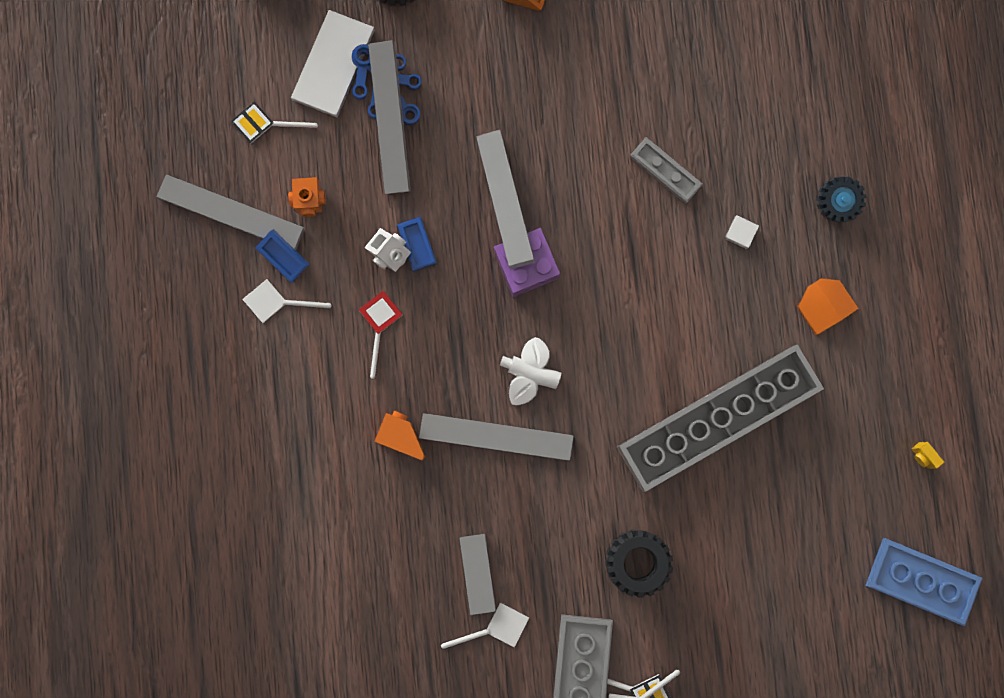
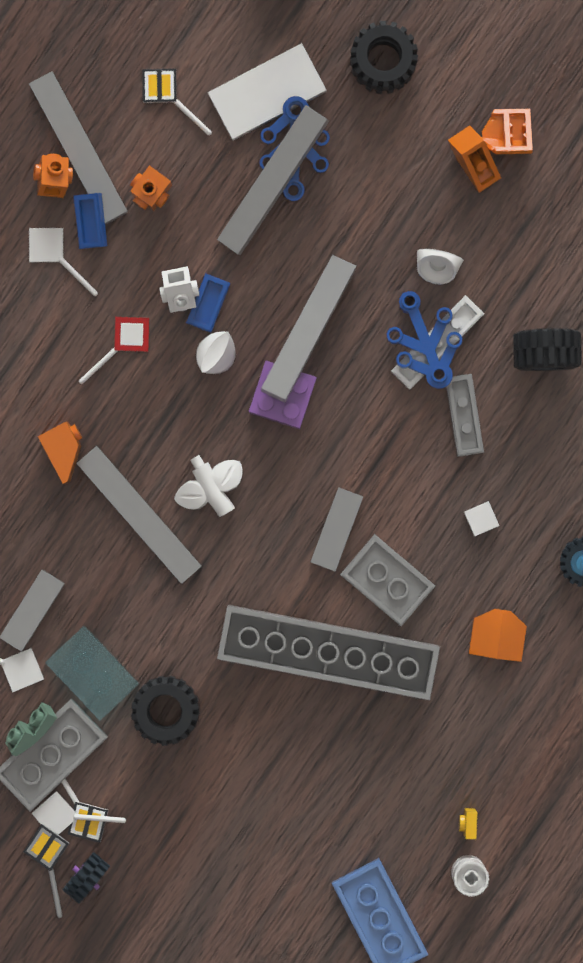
camera: 45 degrees right, 5 degrees up
(228, 245) = (52, 175): none -> orange brick
(452, 274) = (216, 353): none -> white piece
(552, 671) = (26, 735): none -> sand green slope
(557, 82) = (437, 265): none -> white piece
(560, 582) = (92, 672): none -> clear light blue tile
(596, 142) = (426, 344): none -> blue plant
(602, 136) = (464, 317): none -> white tile
(646, 326) = (336, 529): none -> light grey tile
(686, 71) = (547, 349): none -> black tyre
(714, 331) = (387, 580): none -> light grey tile
(962, 493) = (469, 875): none -> white wheel

